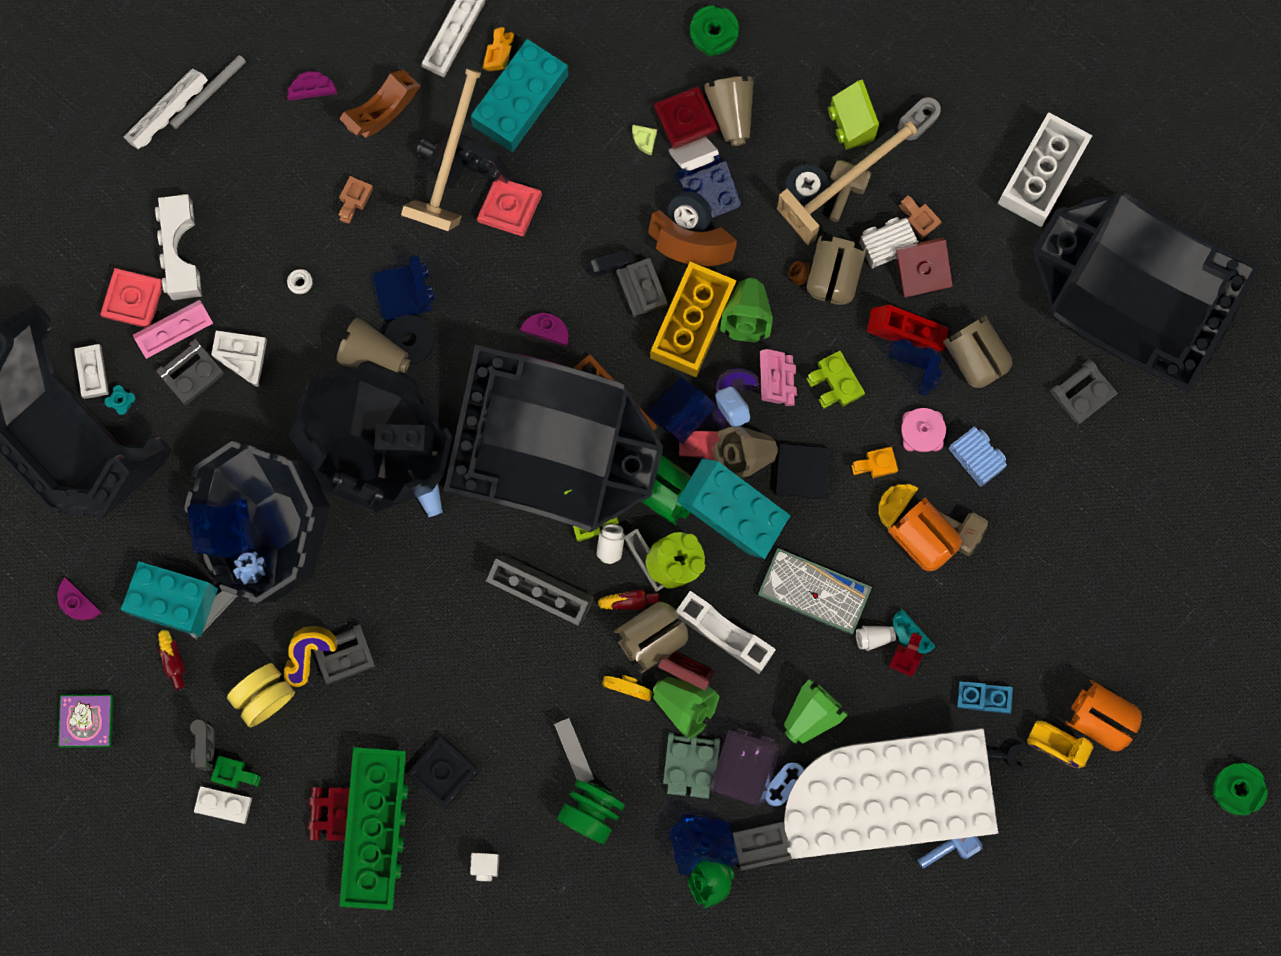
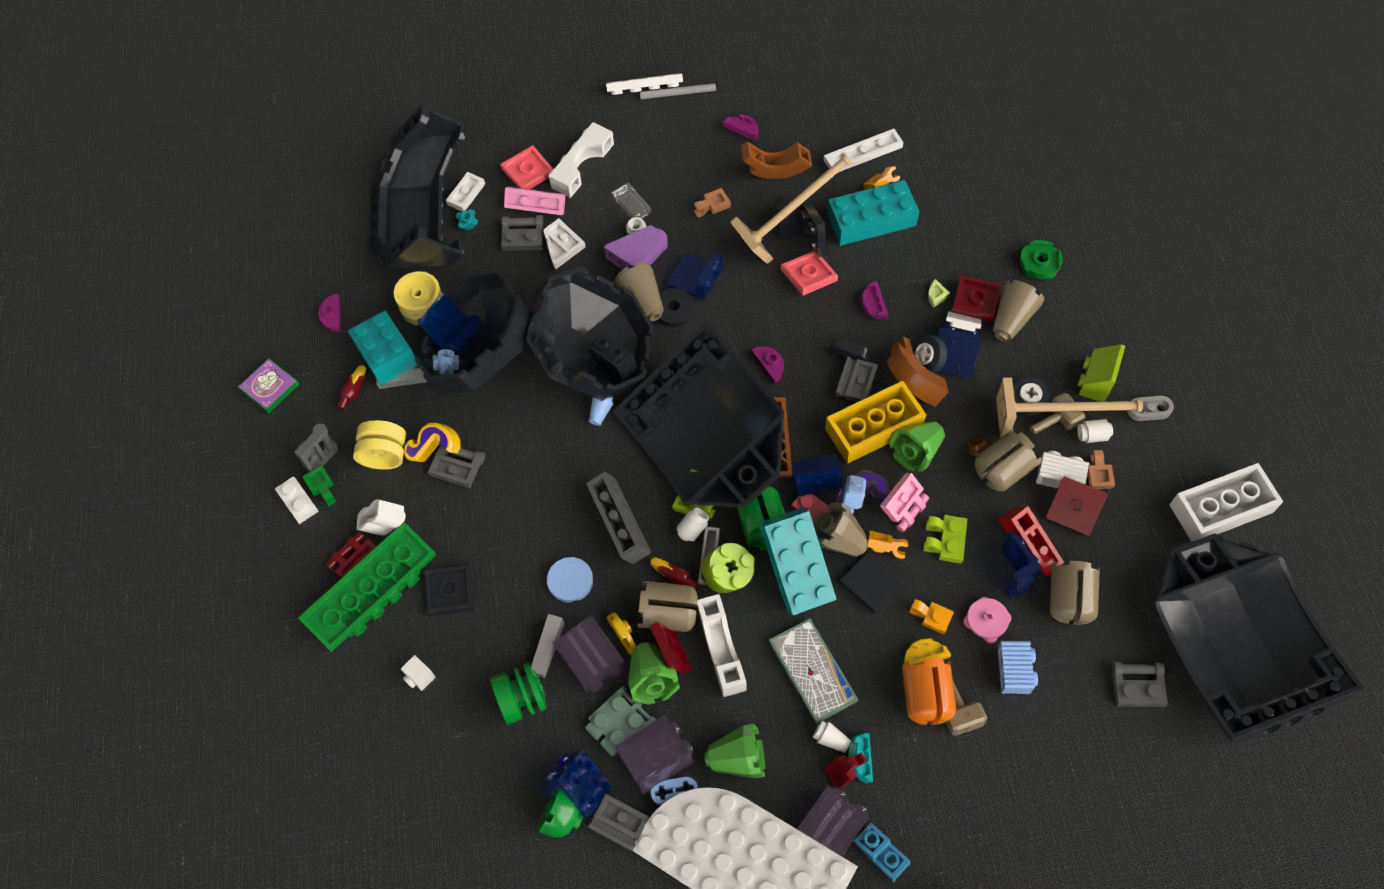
camera: 45 degrees right, 15 degrees down
(160, 536) = (415, 294): none -> light yellow wheel
(270, 256) = (631, 201): none -> clear tile
(324, 306) = (639, 246): none -> medium lavender slope
(327, 760) = (380, 517): none -> white brick
(542, 677) = (570, 579): none -> light blue tile
(594, 193) = (873, 302): none -> magenta plate
(619, 730) = (589, 655): none -> clear purple brick
(786, 429) = (881, 542): none -> light orange plate
(888, 179) = (1095, 431): none -> white brick
(931, 705) = (834, 820): none -> clear purple brick

